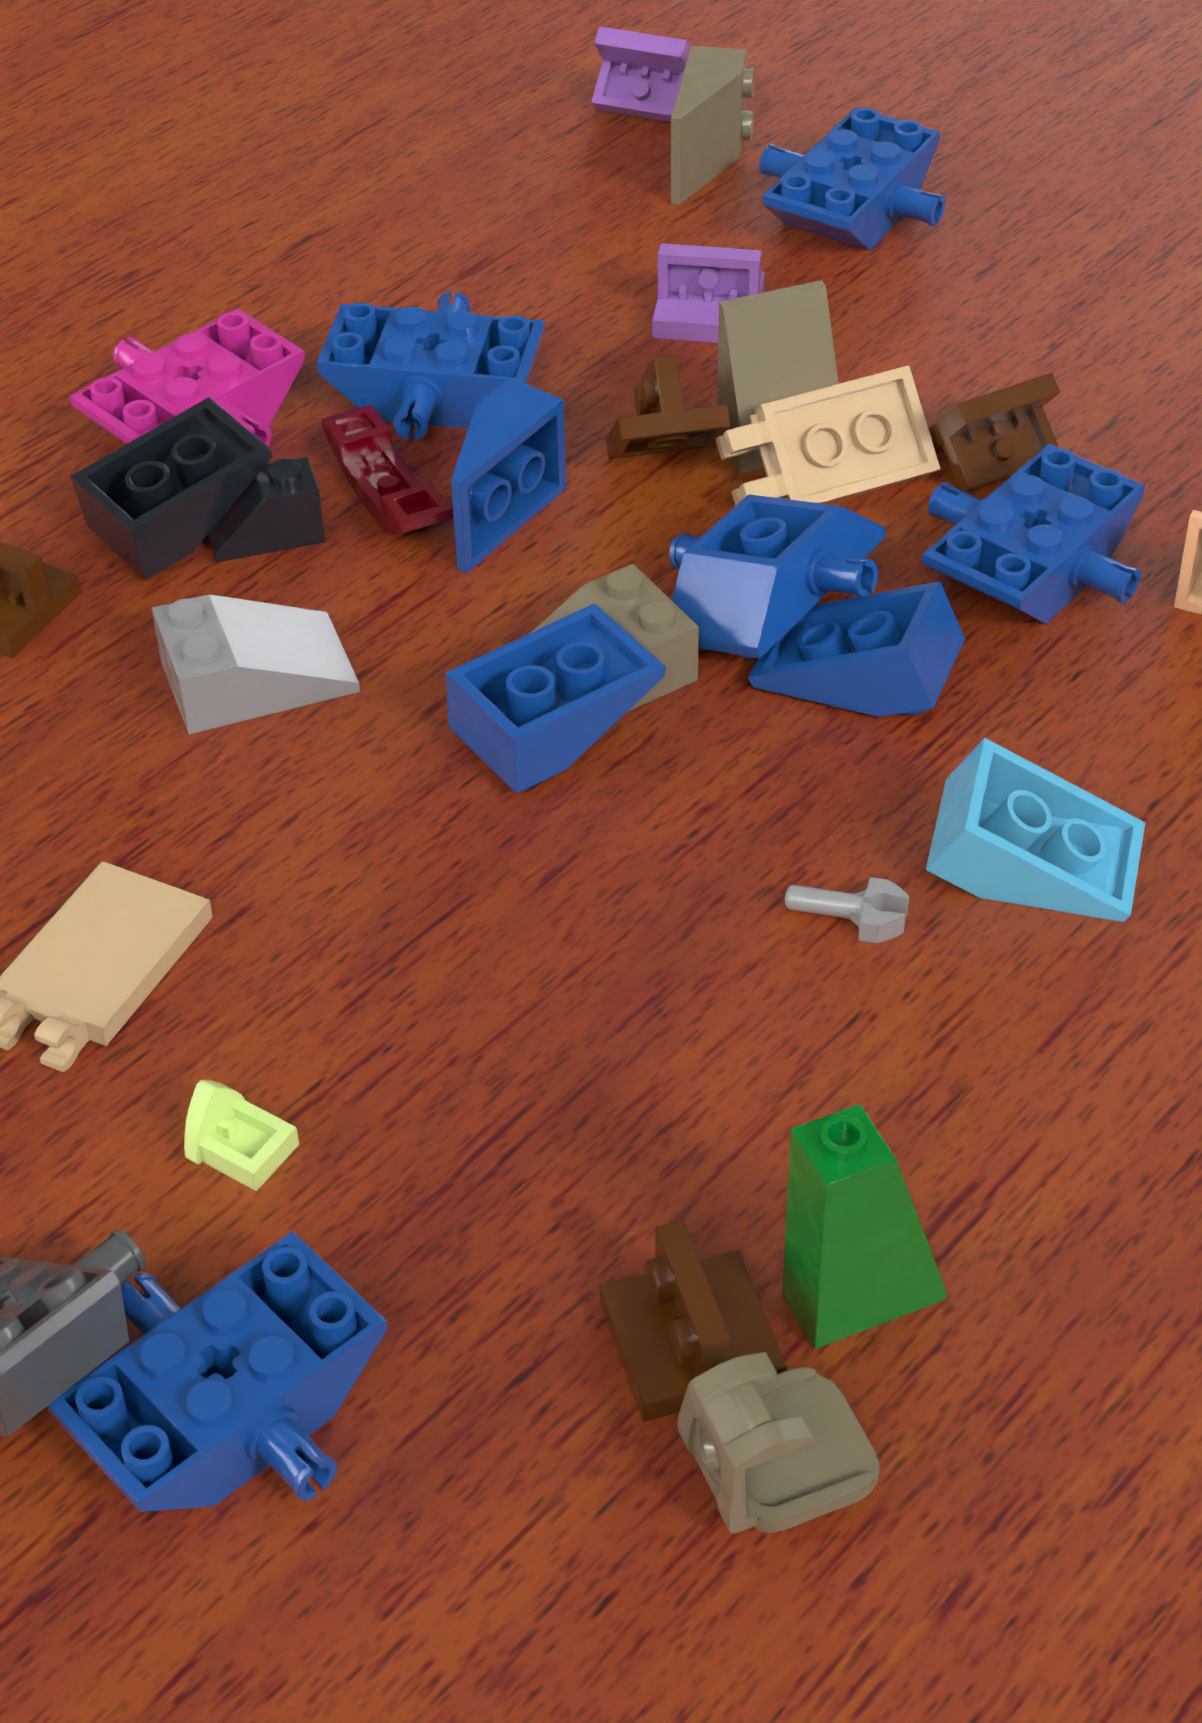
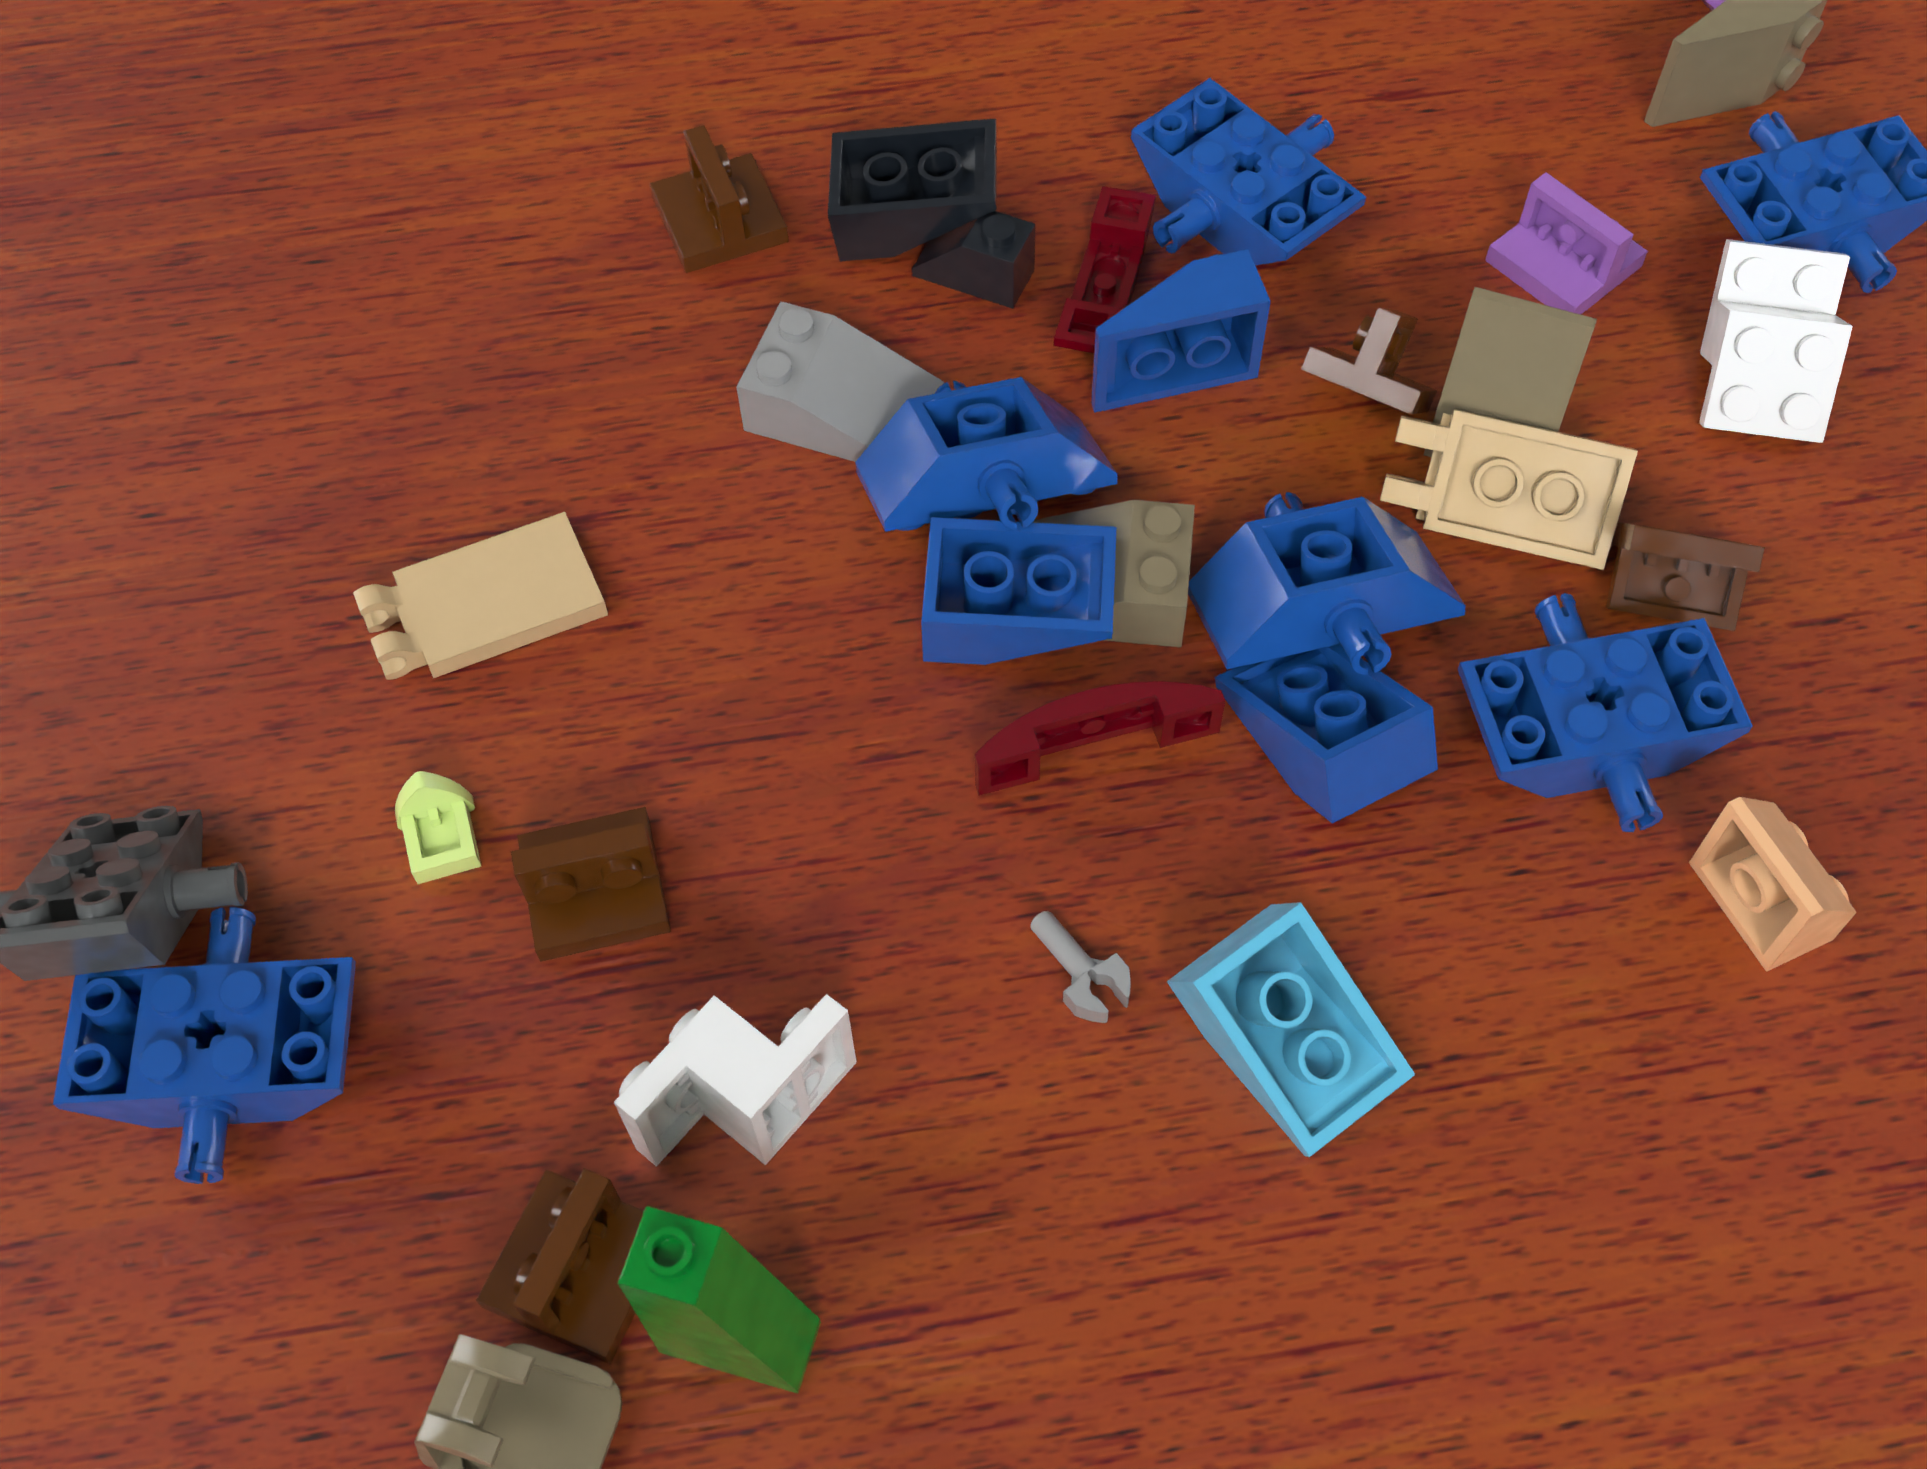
camera: 40 degrees right, 15 degrees up
(229, 360) = (1047, 94): dark pink slope -> none
(417, 1084) = (591, 884): none -> reddish brown bracket
(423, 622) = (979, 453): none -> blue slope
(697, 1109) = (736, 1078): none -> white bracket
(735, 712) = (1172, 709): none -> dark red slope
(920, 278) = (1775, 341): none -> white bracket

